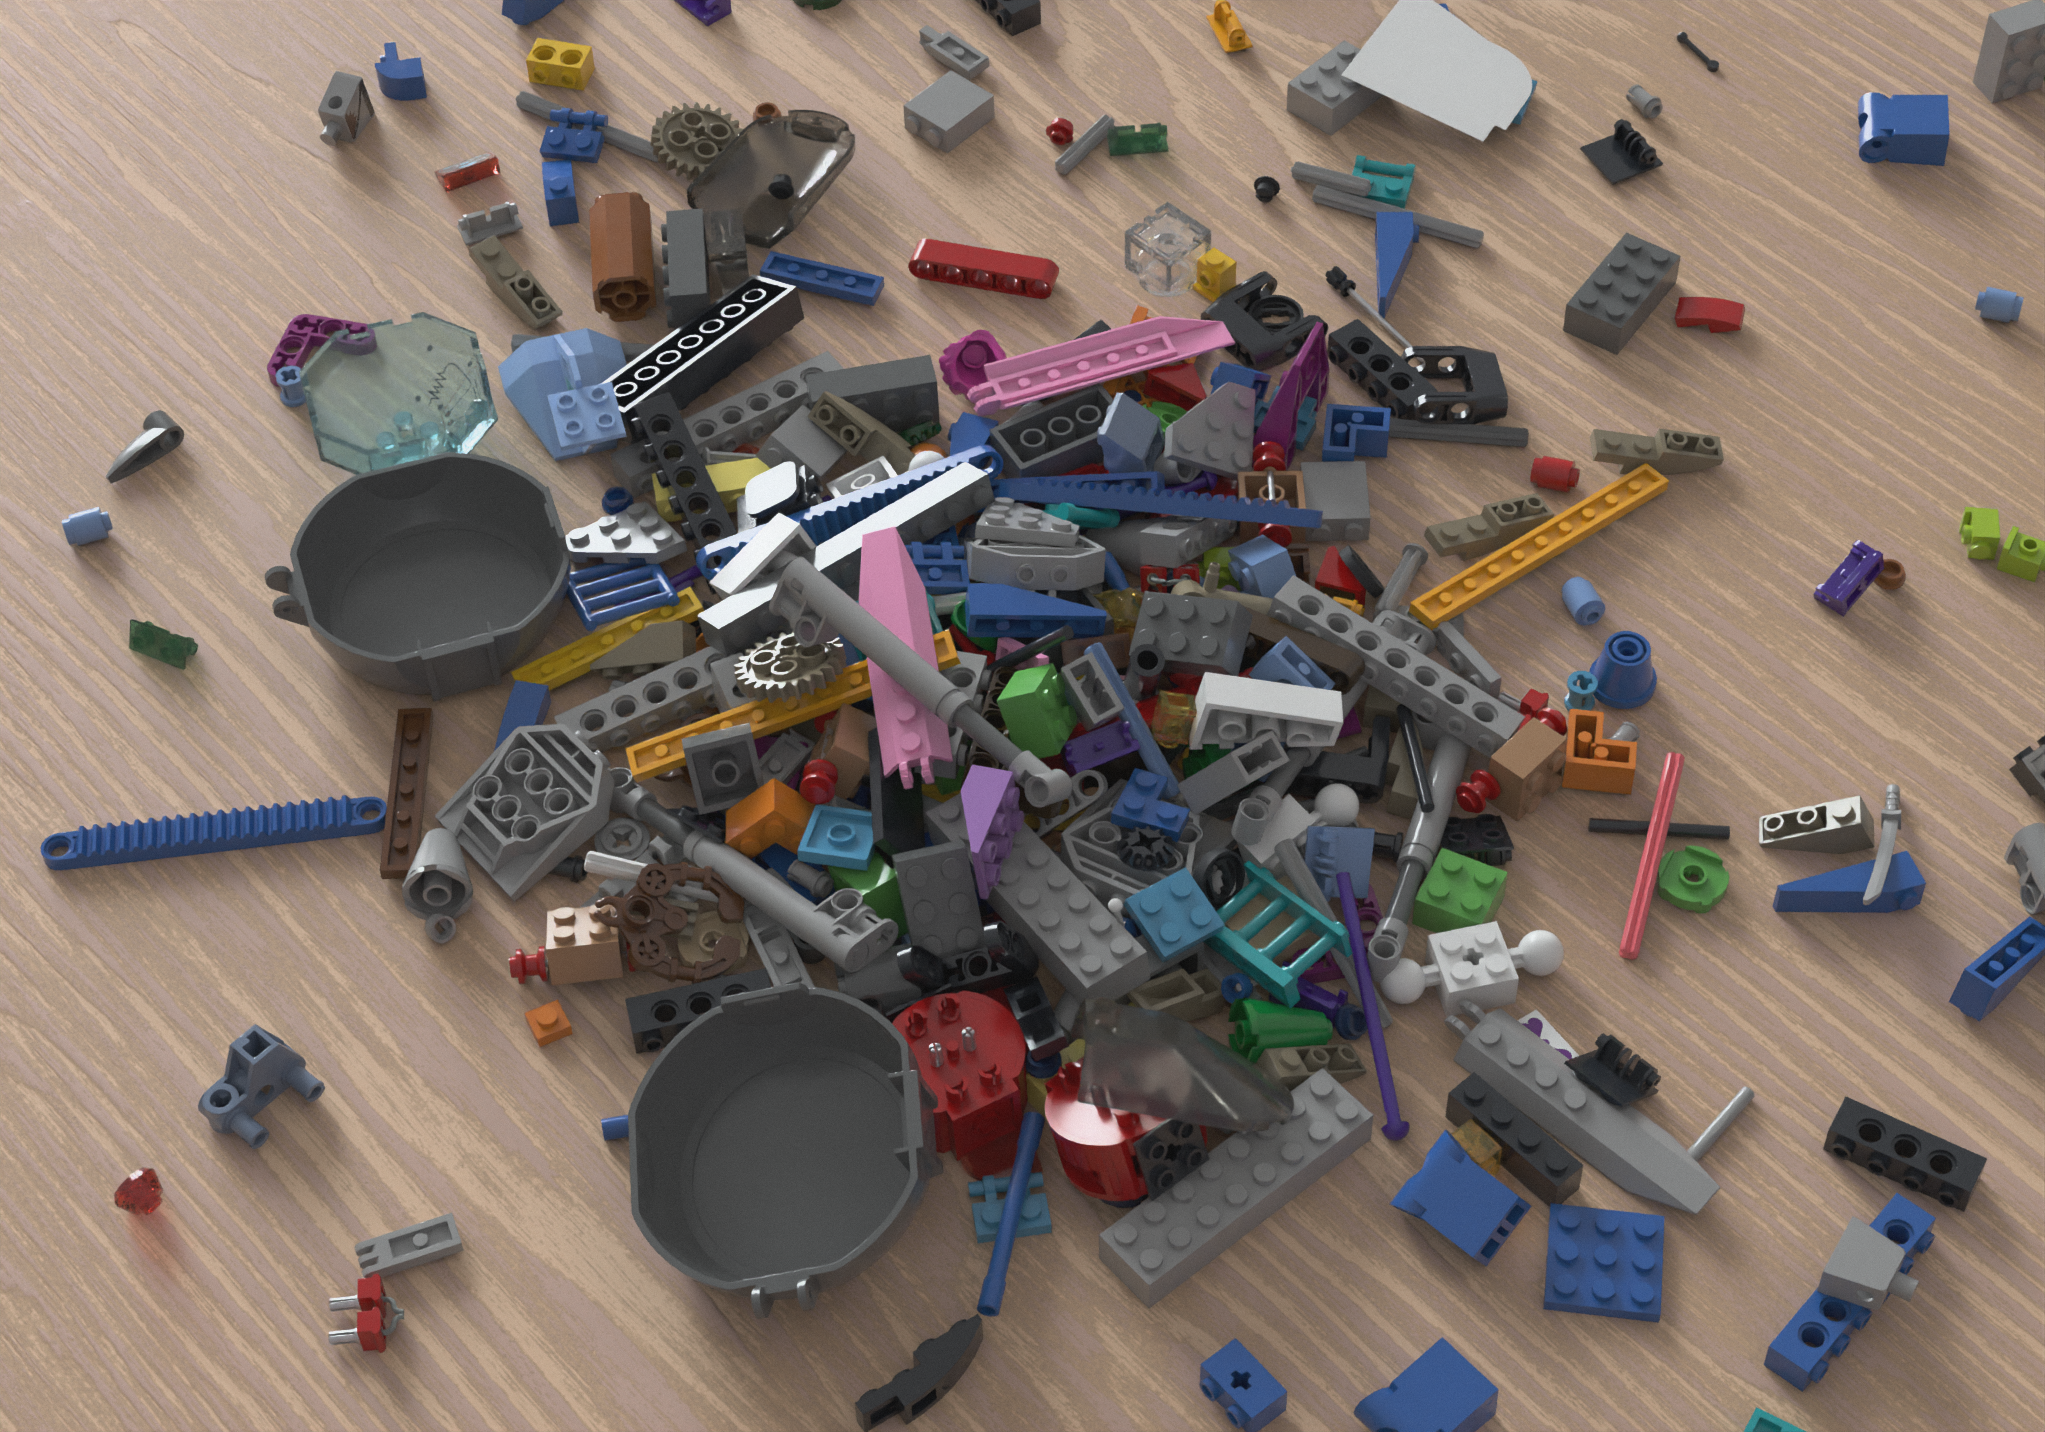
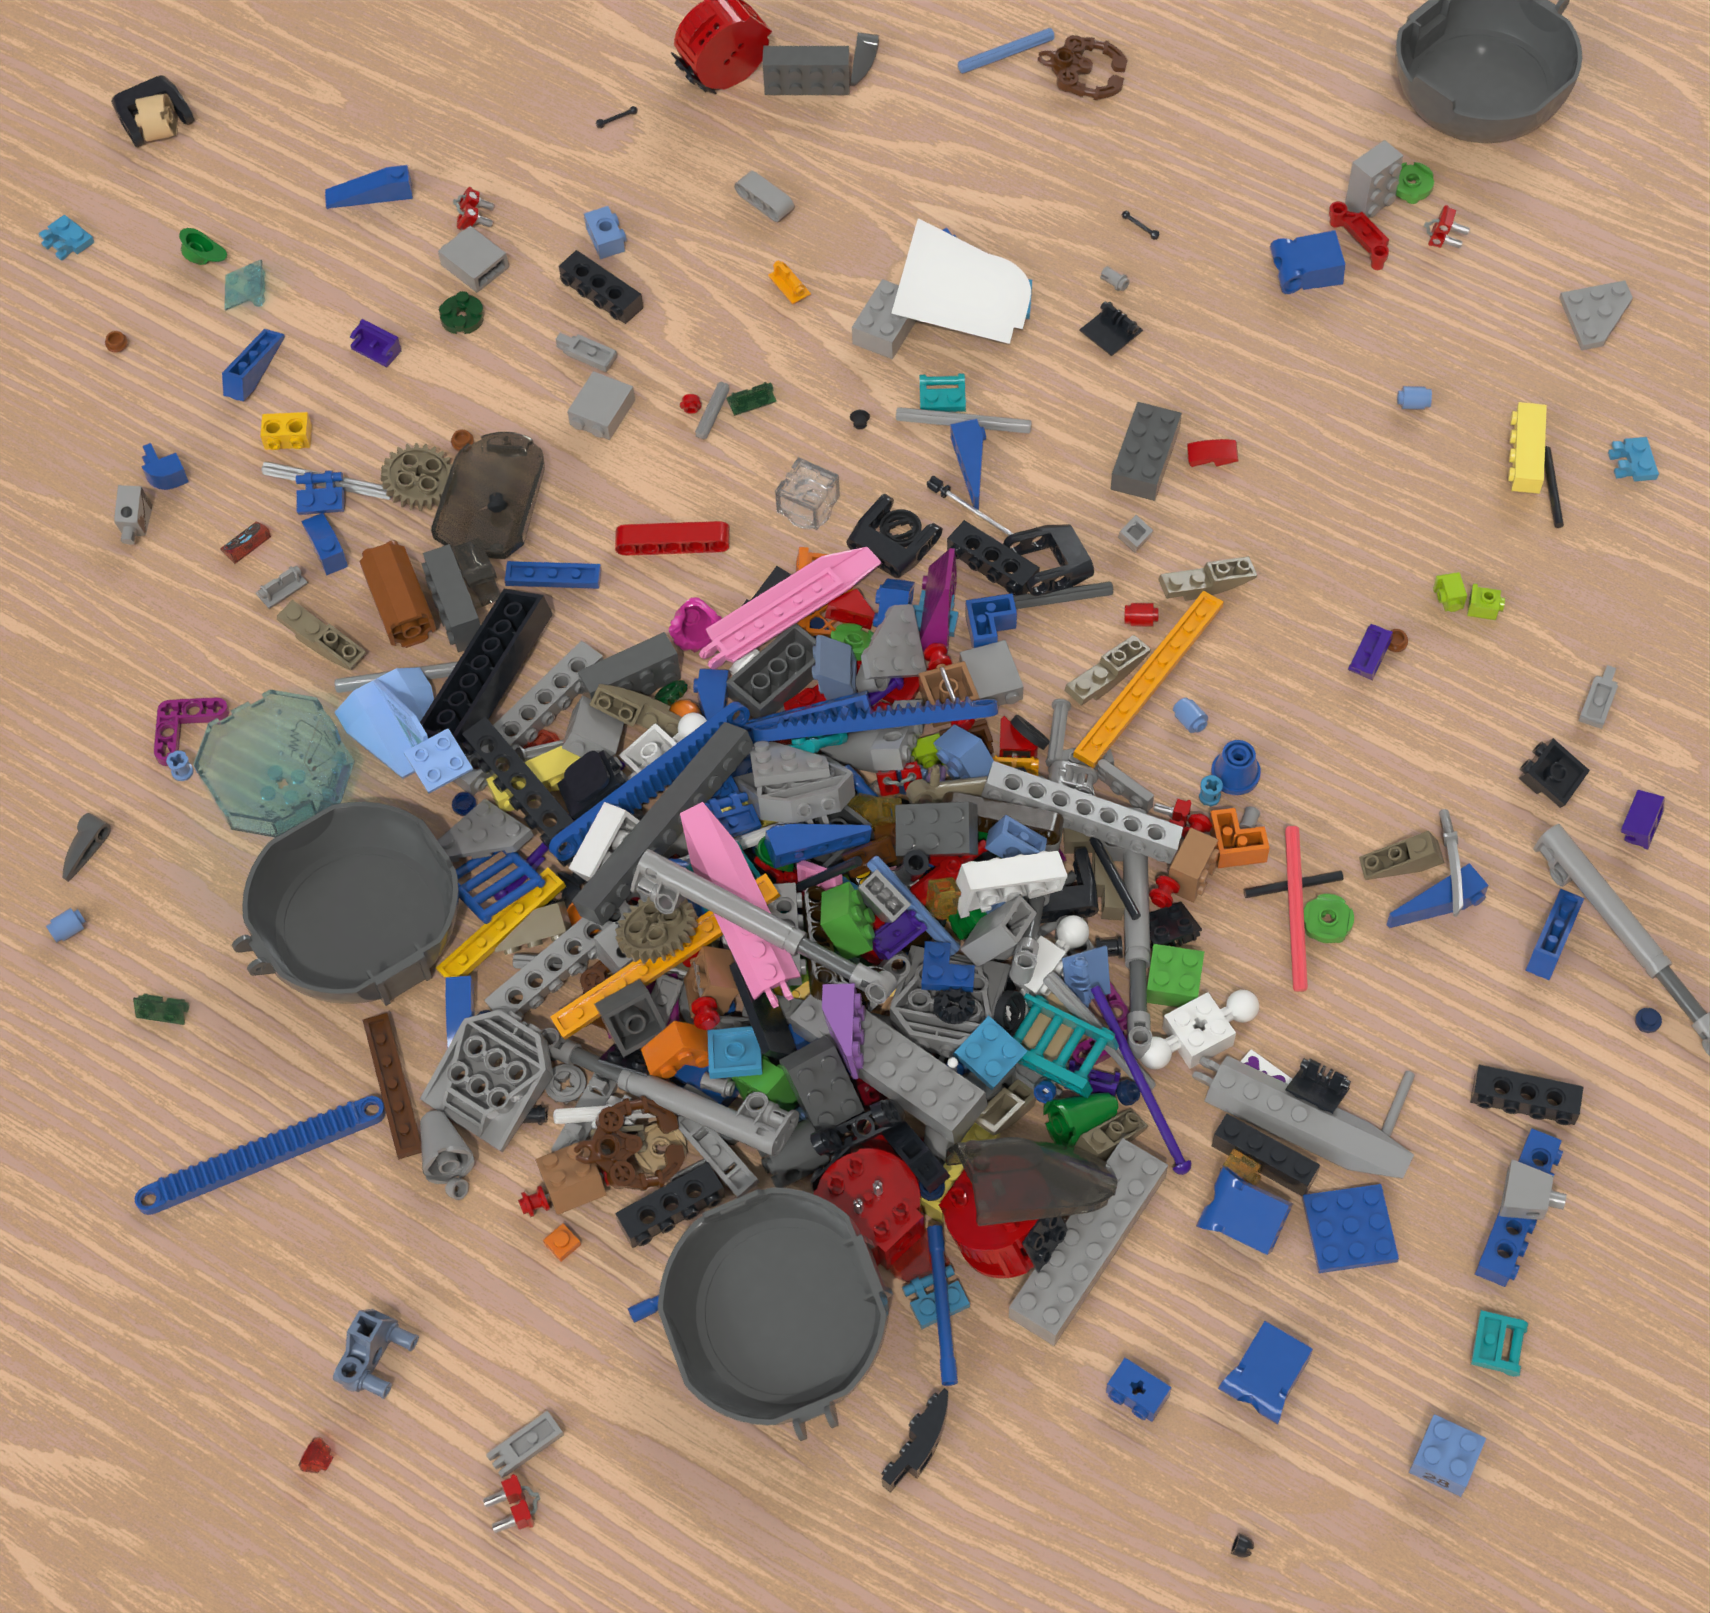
camera: 15 degrees left, 10 degrees up
(1215, 274) = (846, 504): yellow brick -> none
(1331, 179) = (906, 400): light grey axle -> none
(1576, 379) = (1135, 533): none -> light grey brick
(1986, 108) = (1363, 230): none -> red plate

